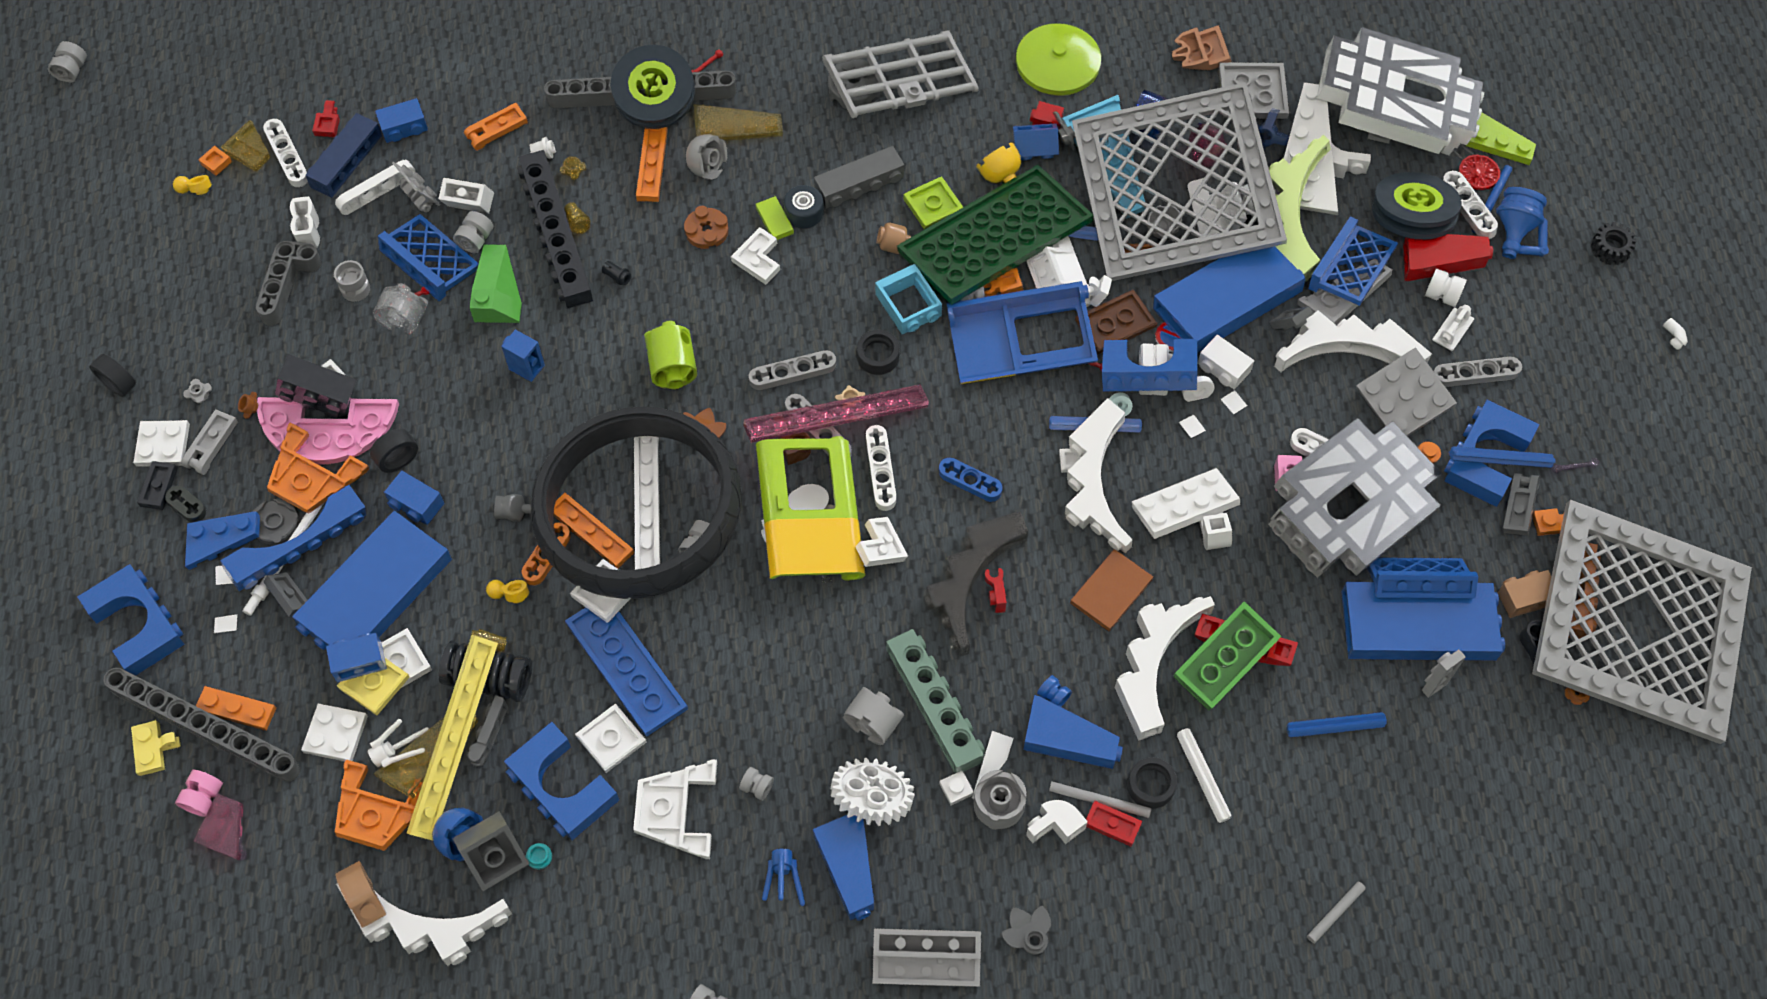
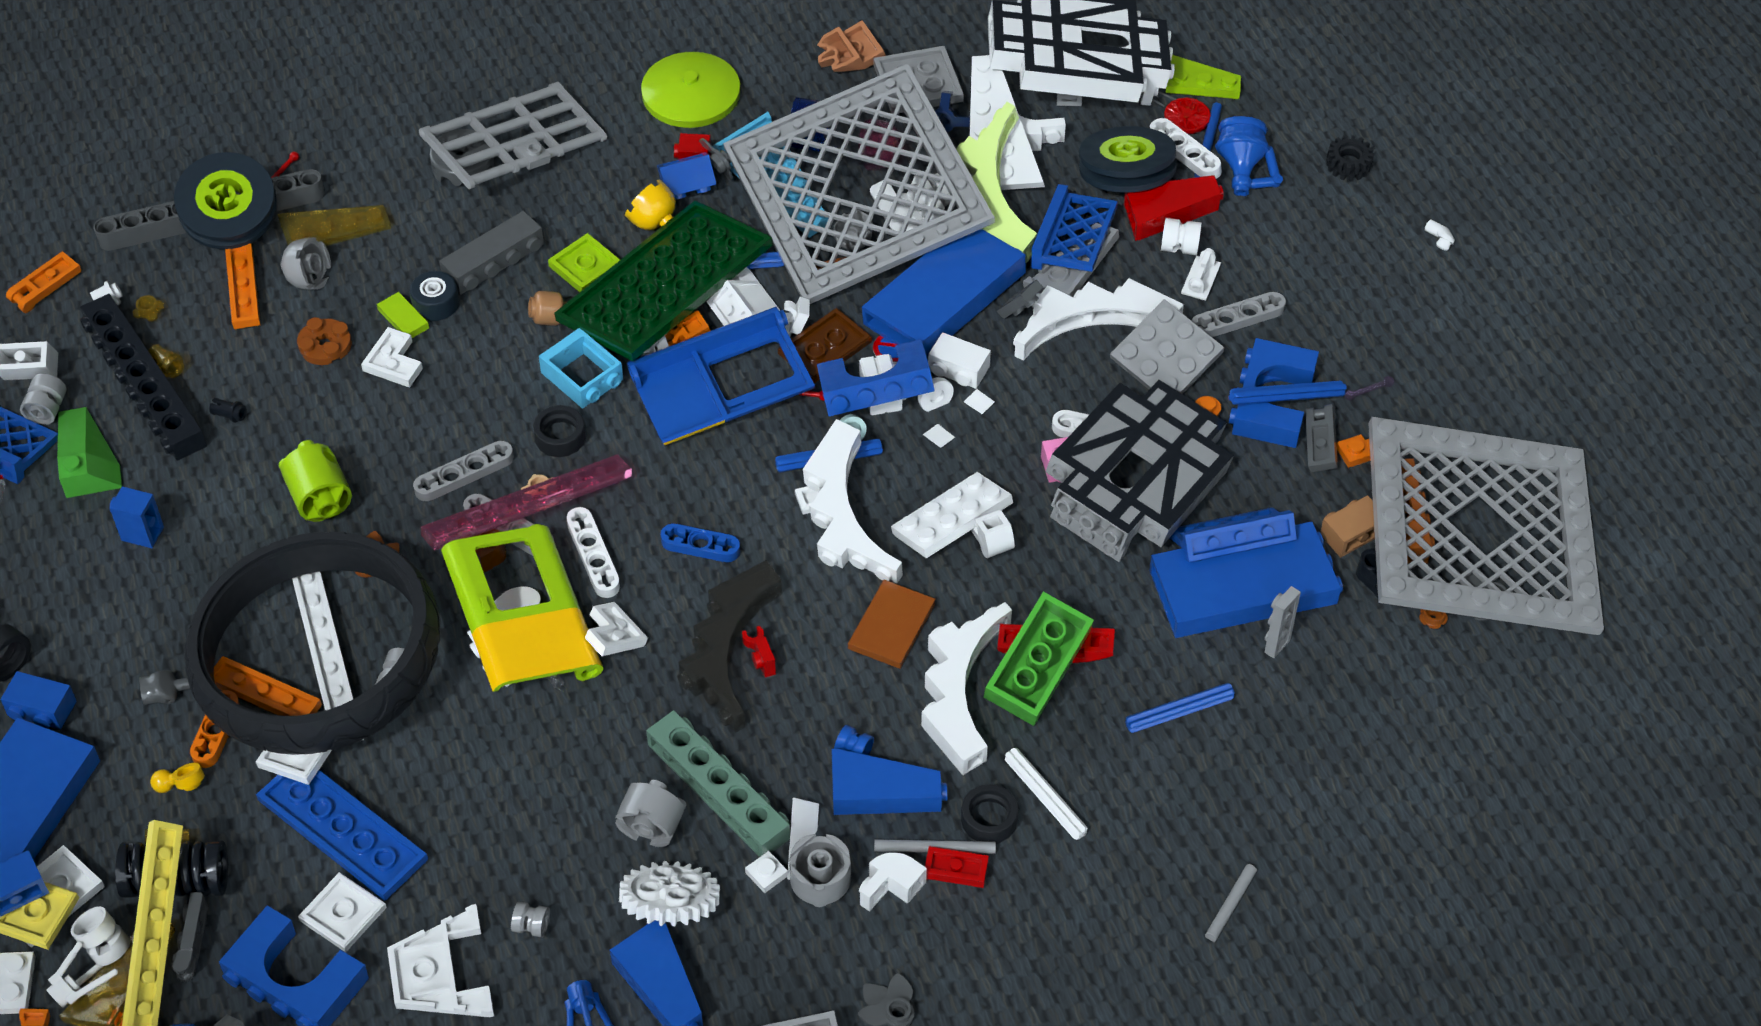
camera: 15 degrees left, 10 degrees down
(418, 715) = (100, 936): none -> white wheel

